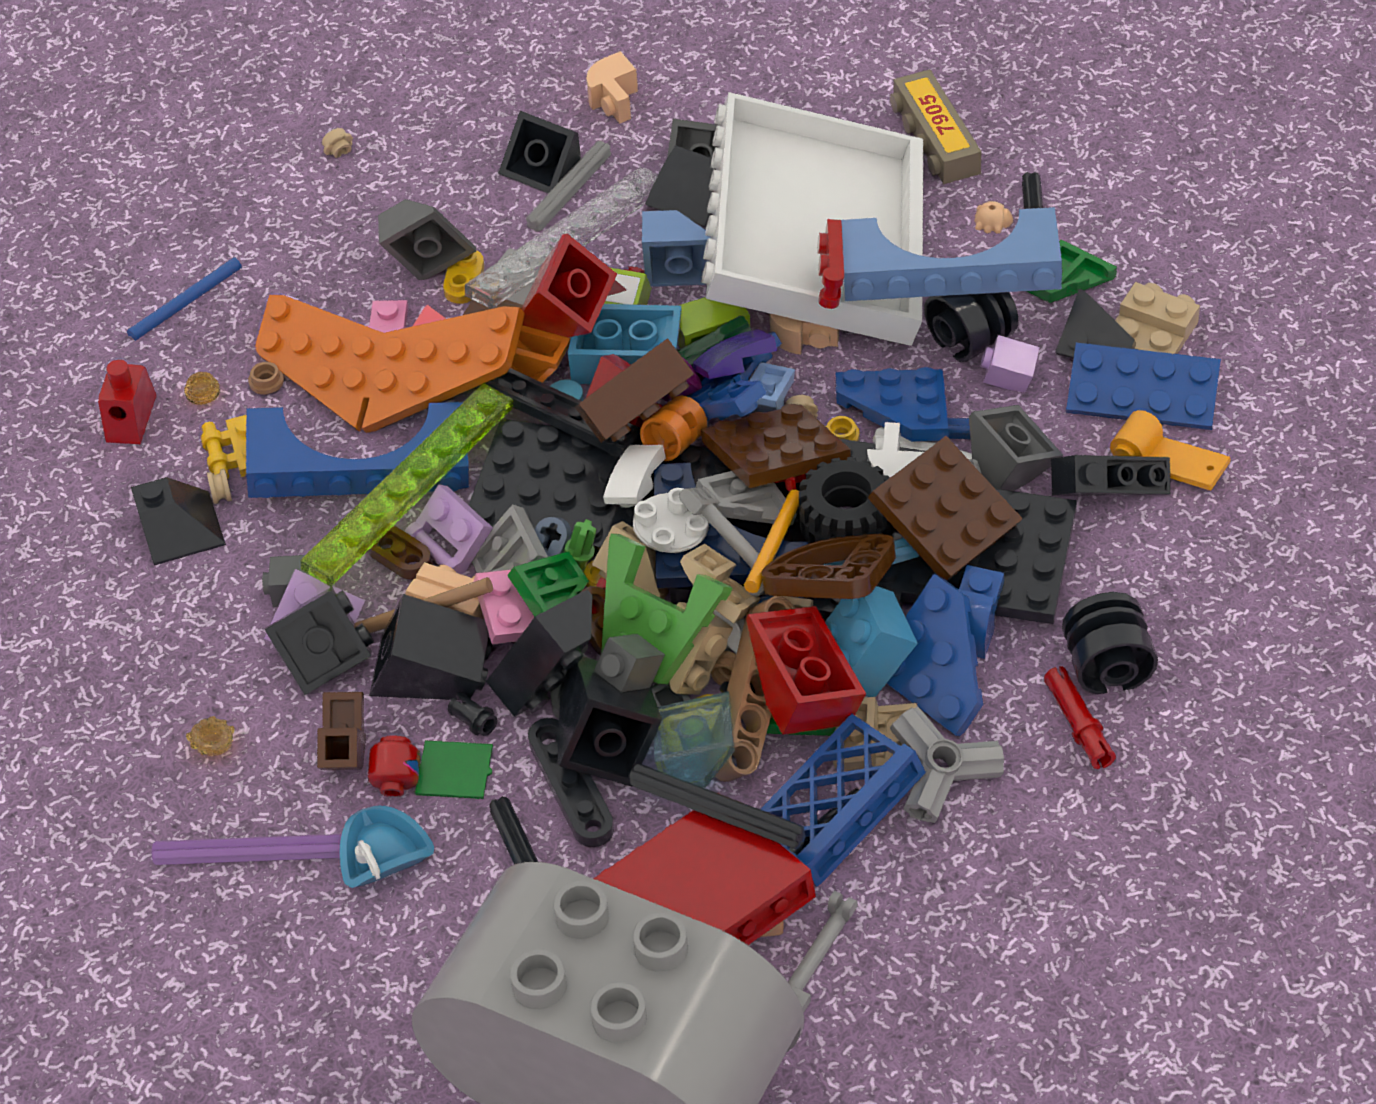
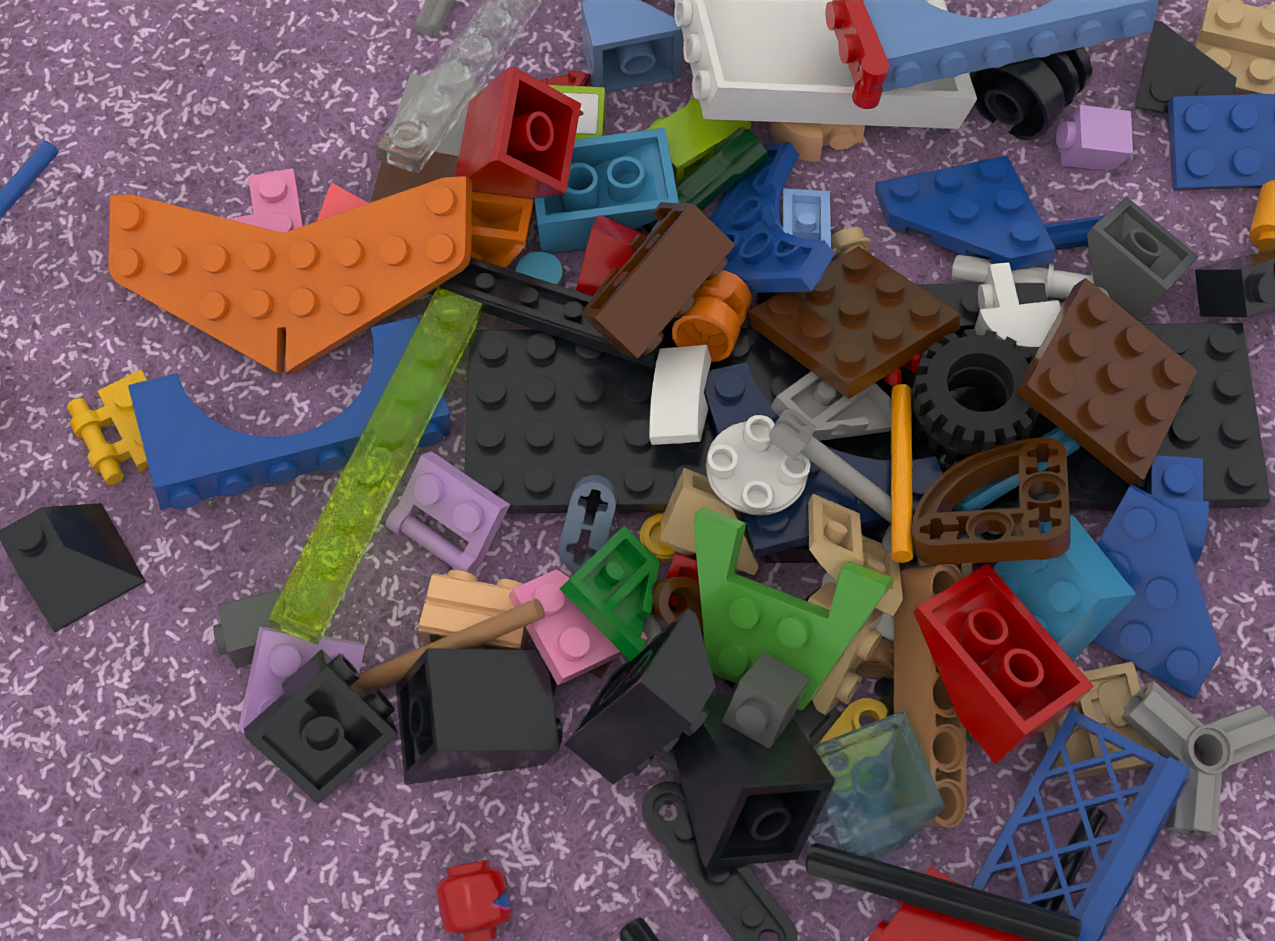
camera: 15 degrees left, 15 degrees up
(201, 388) = (52, 347): clear yellow plate -> none
(211, 736) = (206, 887): clear yellow animal -> none
(219, 486) = (115, 497): tan bush -> none
(265, 378) = (129, 306): medium nougat plate -> none
(342, 732) = (391, 869): reddish brown brick -> none
(403, 551) = (391, 552): reddish brown plate -> none
(422, 238) = (293, 81): dark grey slope -> none
(454, 769) = (553, 880): green piece -> none
(459, 275) = (357, 115): yellow plate -> none
(473, 714) = (557, 792): black pin -> none
(509, 543) = (540, 530): light grey wing -> none
(582, 543) = (636, 512): bright green axle -> none
(727, 355) = (751, 189): dark purple slope -> none
(844, 425) = (913, 259): yellow plate -> none

